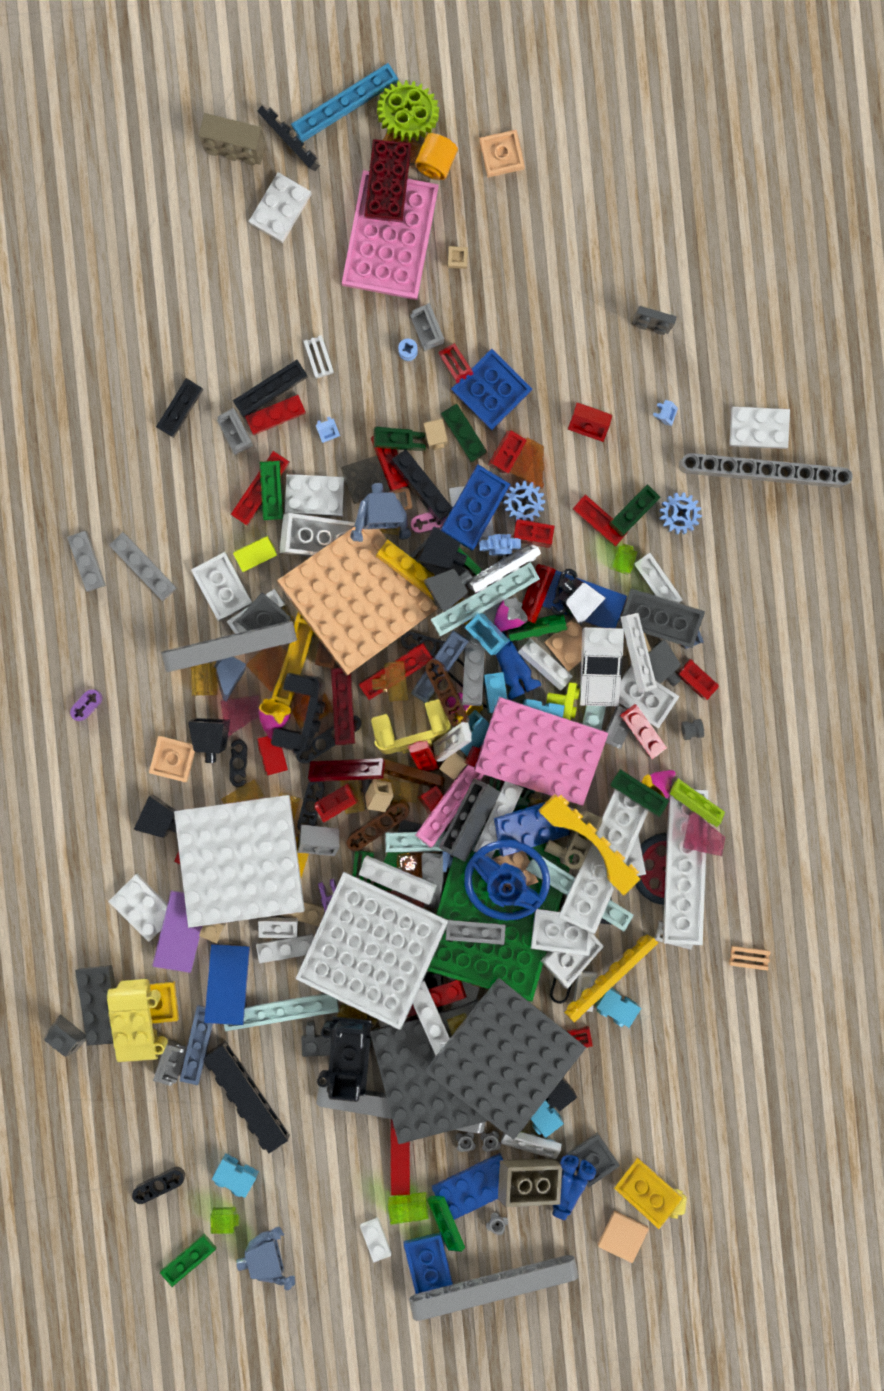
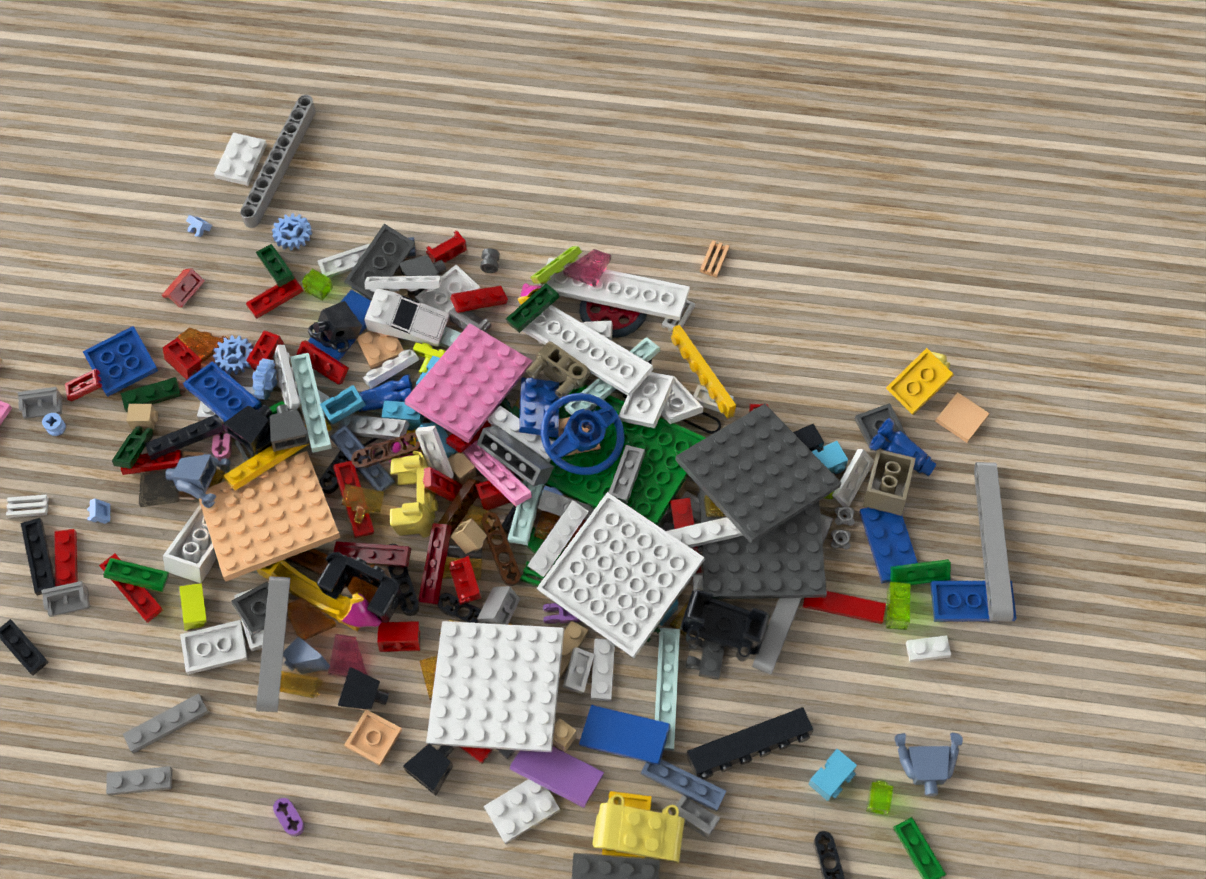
camera: 80 degrees left, 25 degrees down
(243, 755) = (405, 679): black piece -> none
(314, 495) = (155, 538): white plate -> none
(497, 1229) = (930, 522): light grey plate -> none
(509, 615) = (332, 383): hat -> none
(542, 626) = (354, 357): green plate -> none
(618, 873) = (598, 332): yellow arch -> none
(622, 1010) = (736, 373): medium azure brick -> none
(654, 320) = (112, 214): dark grey plate -> none

